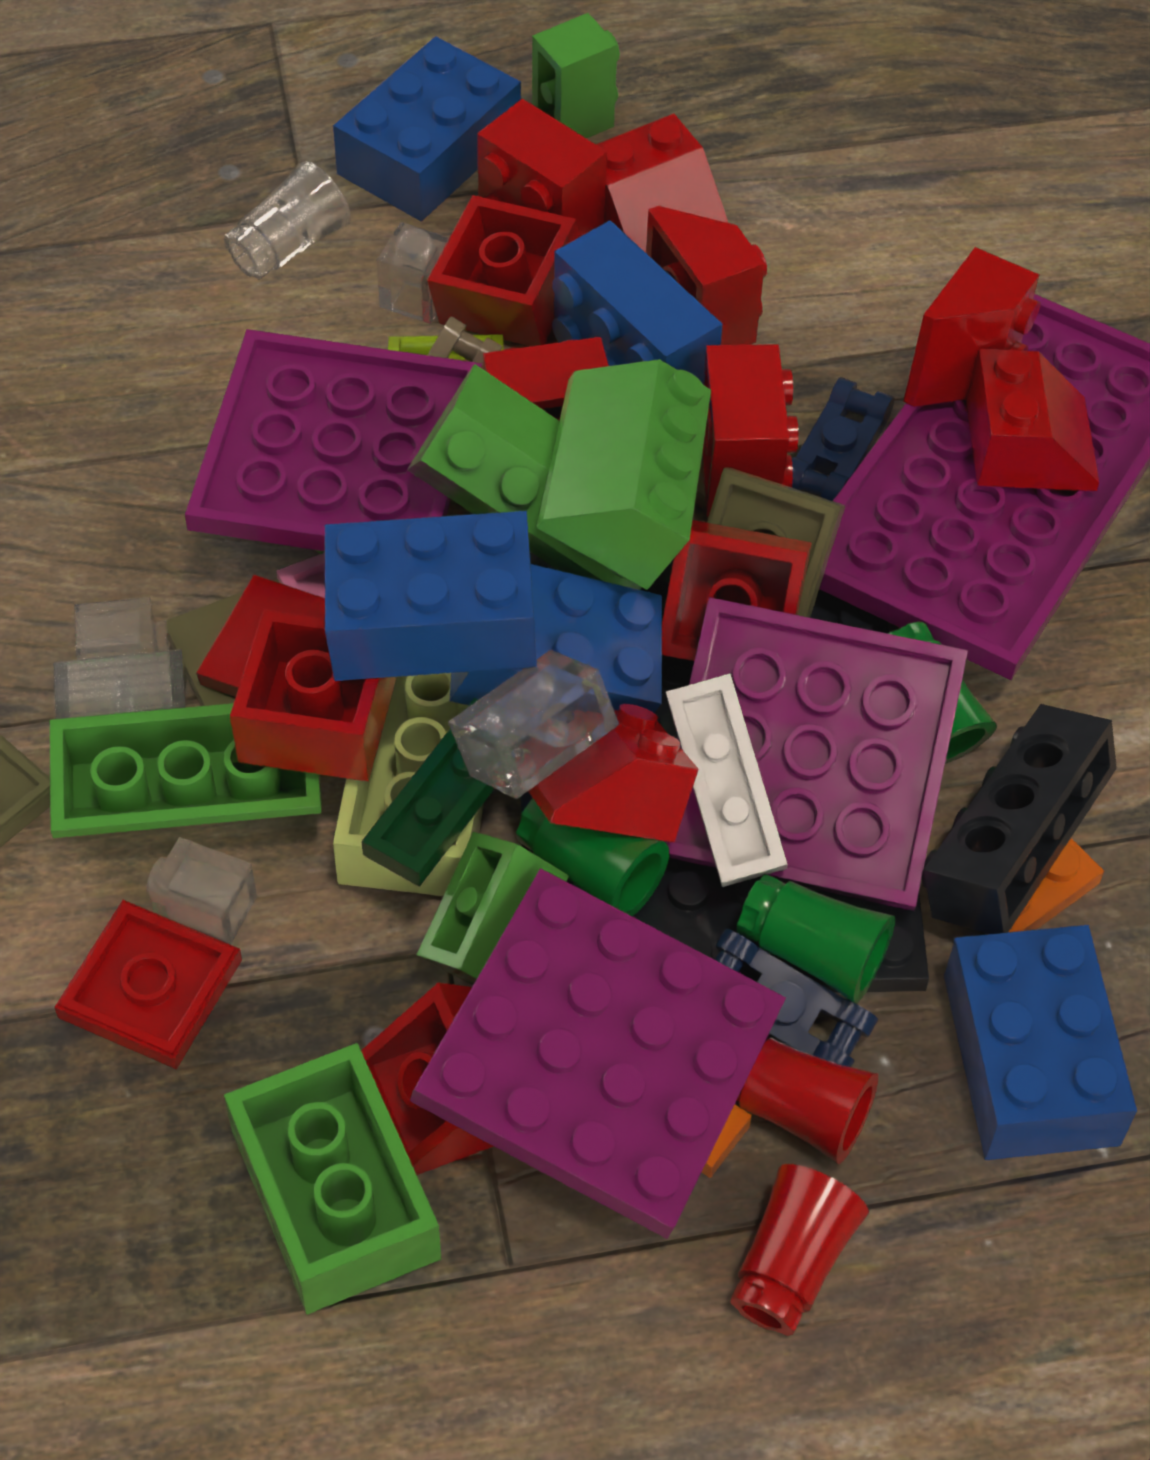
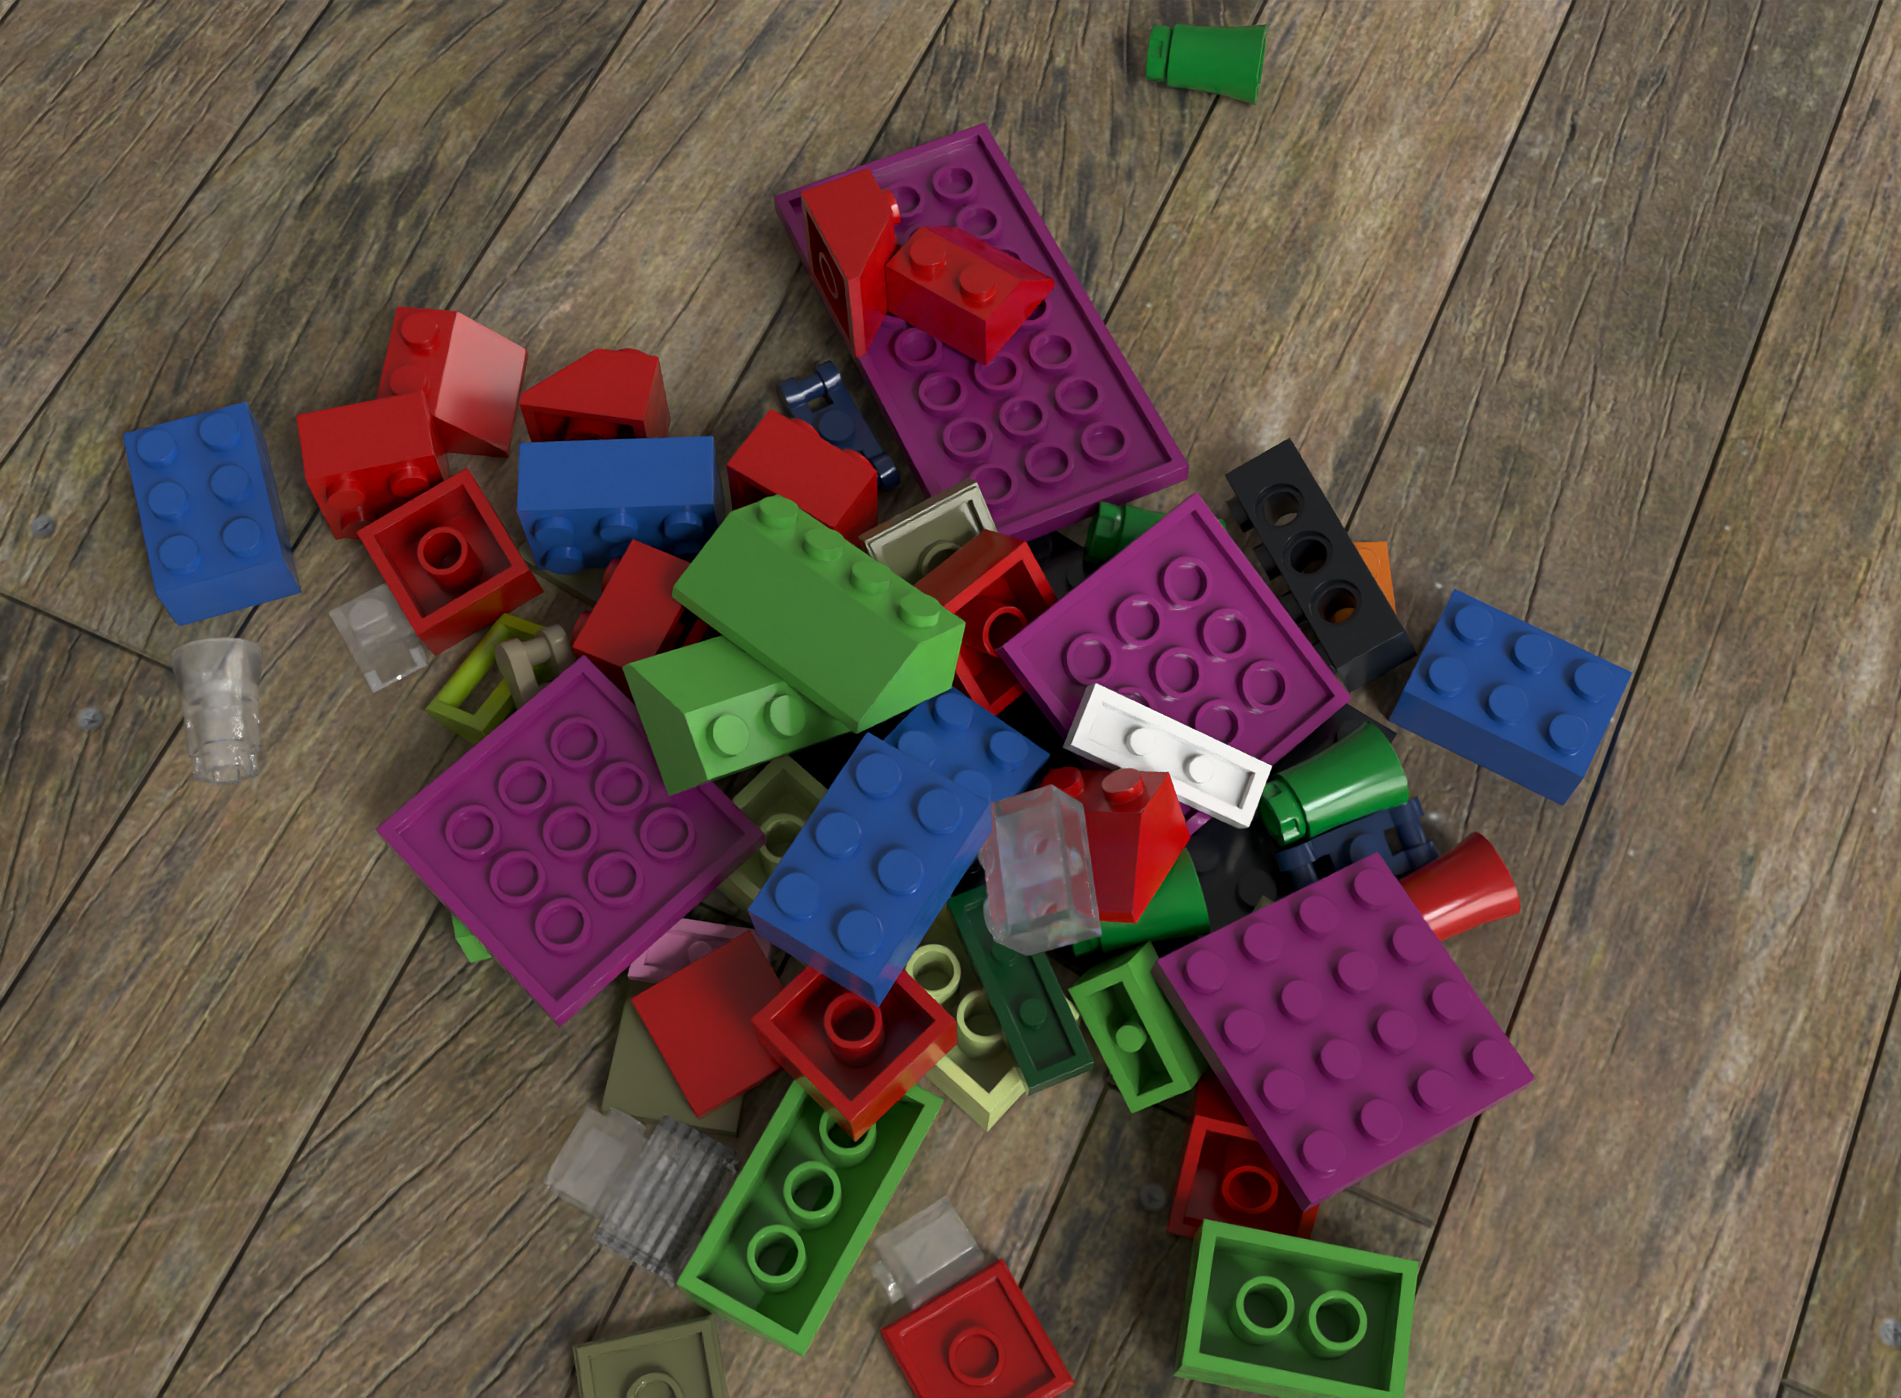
camera: 55 degrees left, 10 degrees up
(576, 74) = (277, 355): bright green brick -> none
(796, 1247) = (1574, 997): red plant -> none

